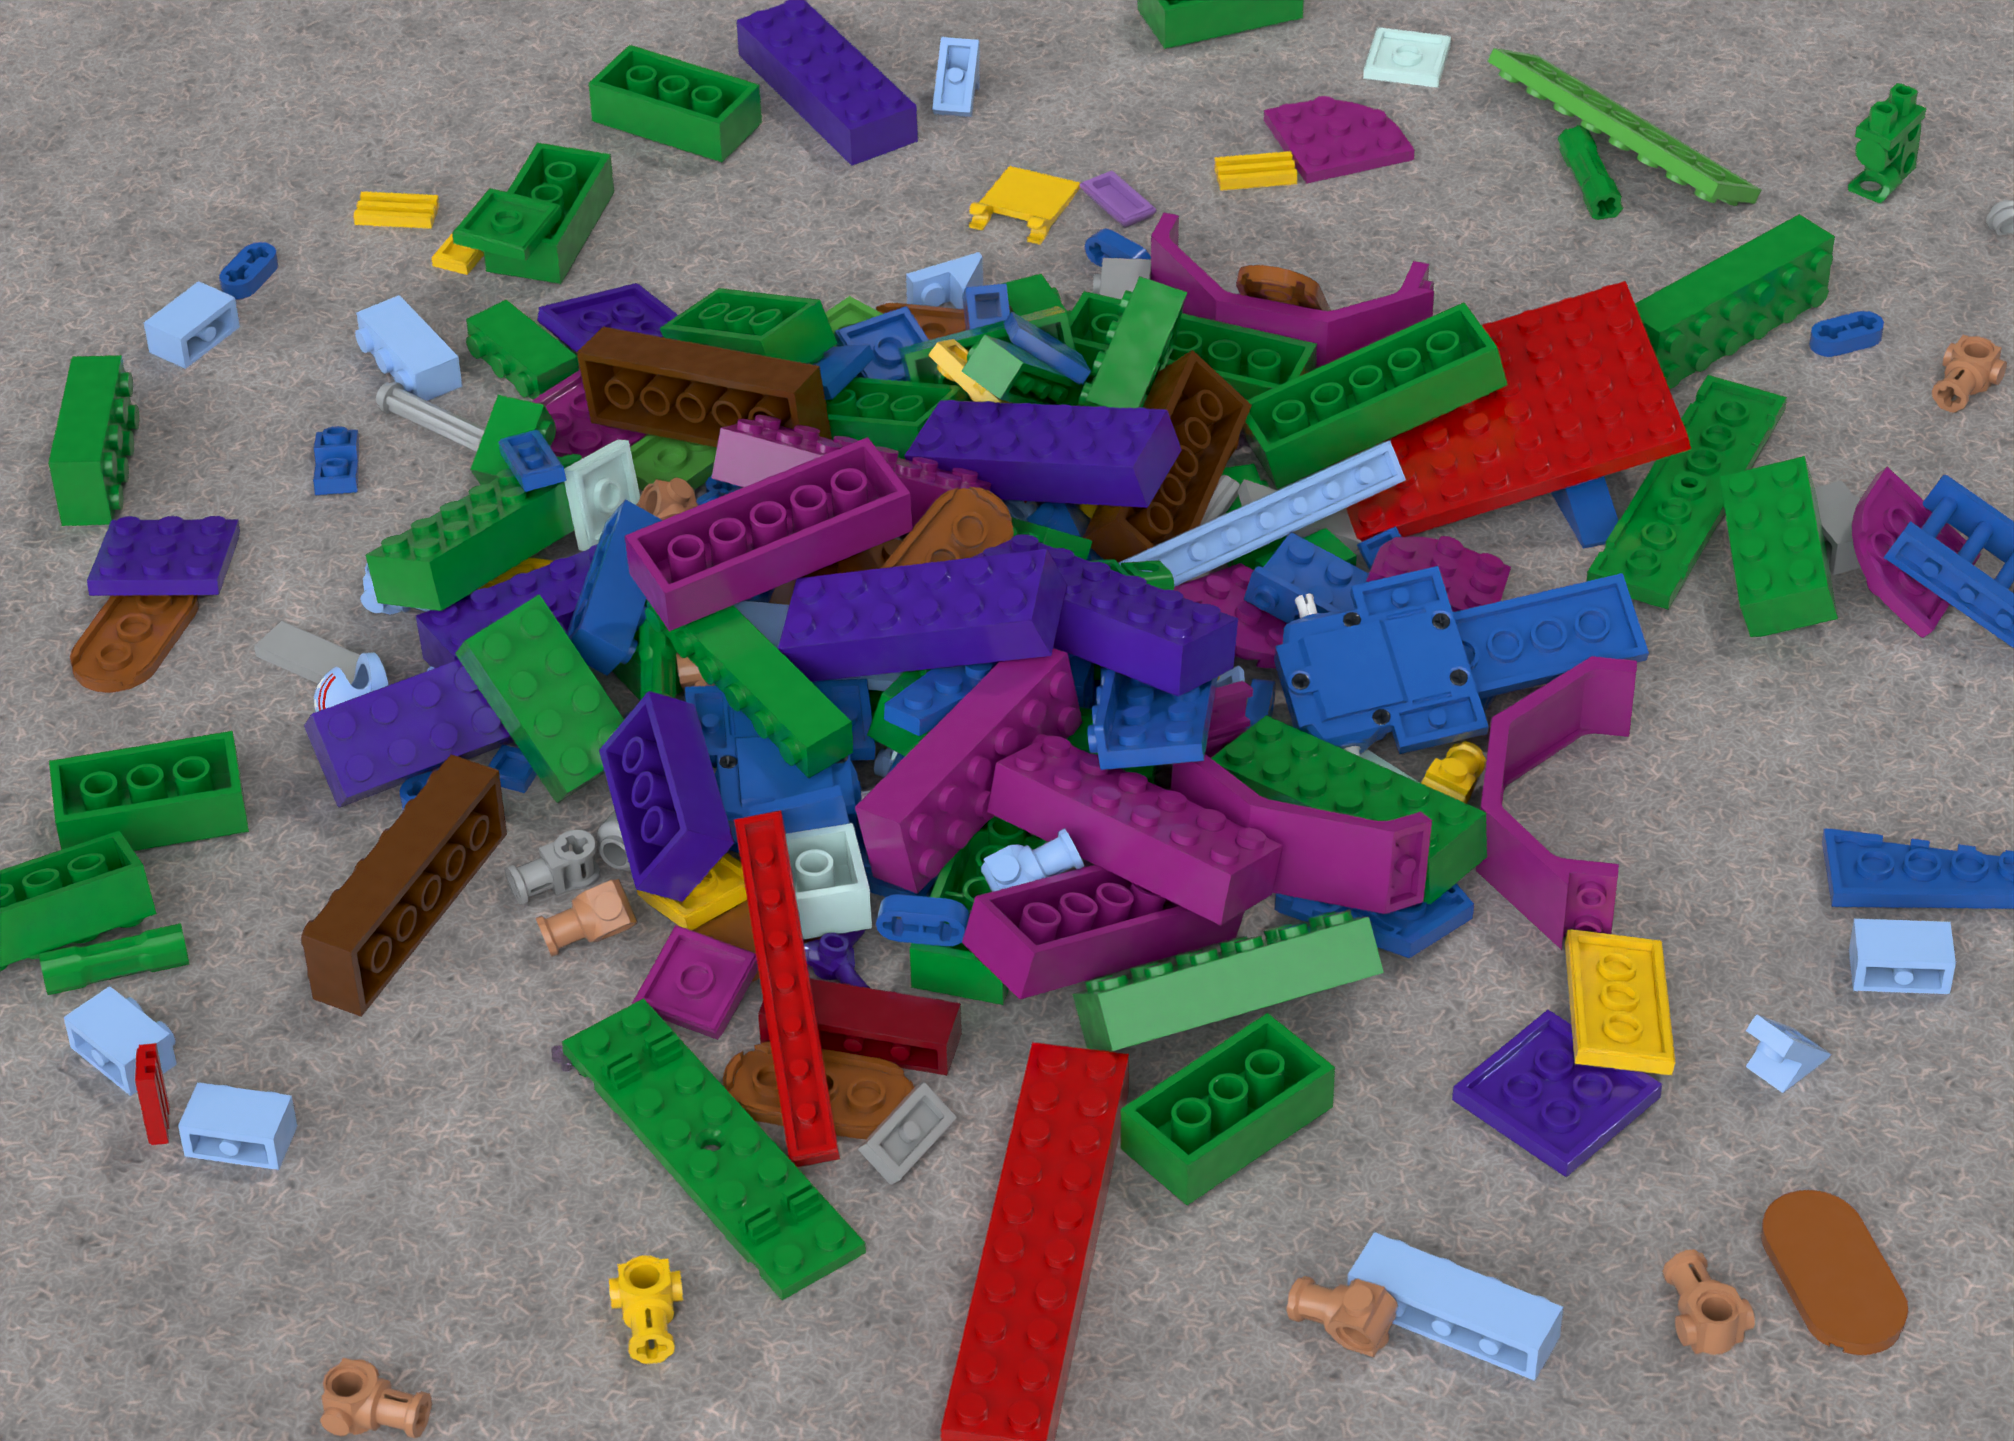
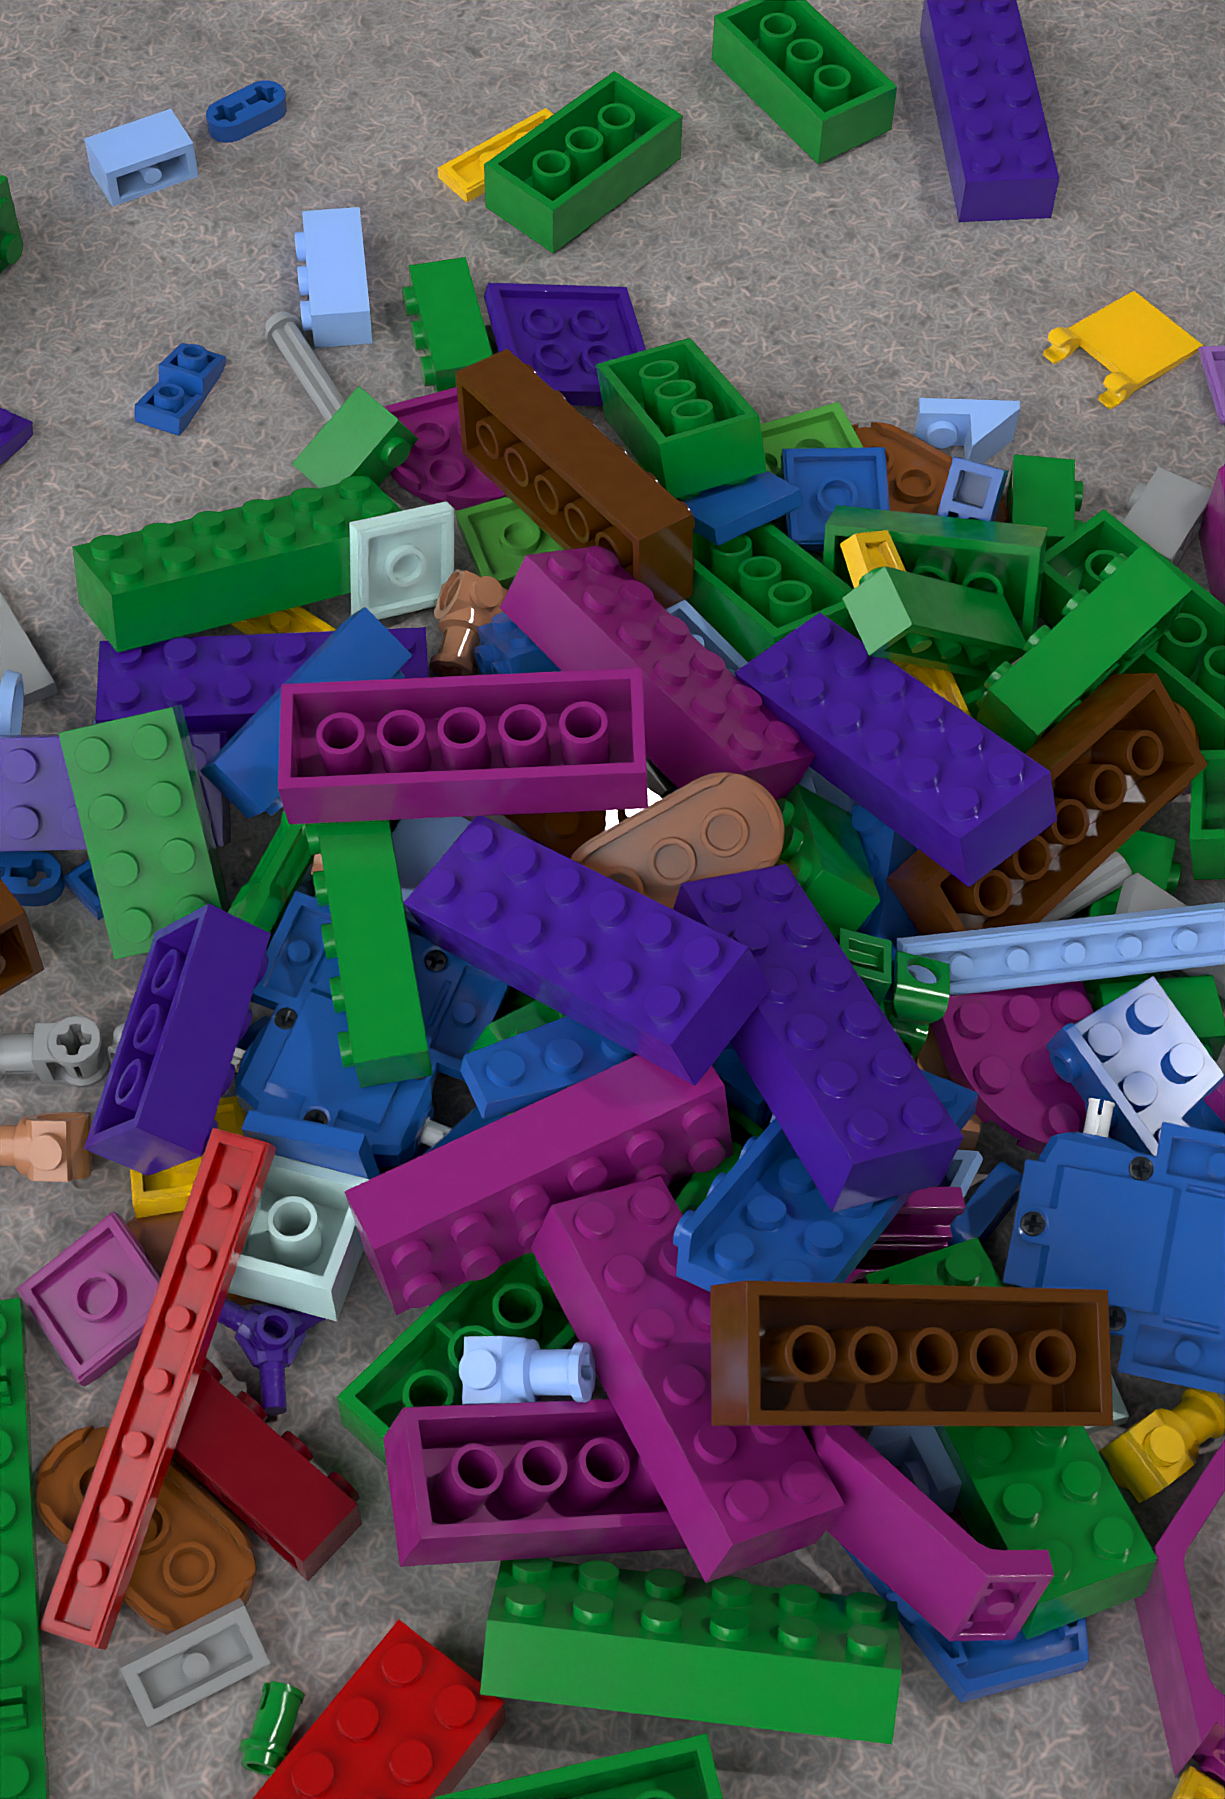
camera: 25 degrees right, 15 degrees up
(396, 209) = (446, 90): yellow tile -> none
(507, 224) = (513, 165): green tile -> none
(531, 460) = (332, 493): blue tile -> none
(922, 920) = (360, 1374): blue beam -> none
(957, 76) = (1133, 154): light blue slope -> none
(982, 1148) = (271, 1728): none -> green pin
(1046, 348) = (988, 590): blue tile -> none
(1112, 245) = (1184, 455): blue beam -> none
(1278, 736) = (909, 1355): none -> reddish brown brick

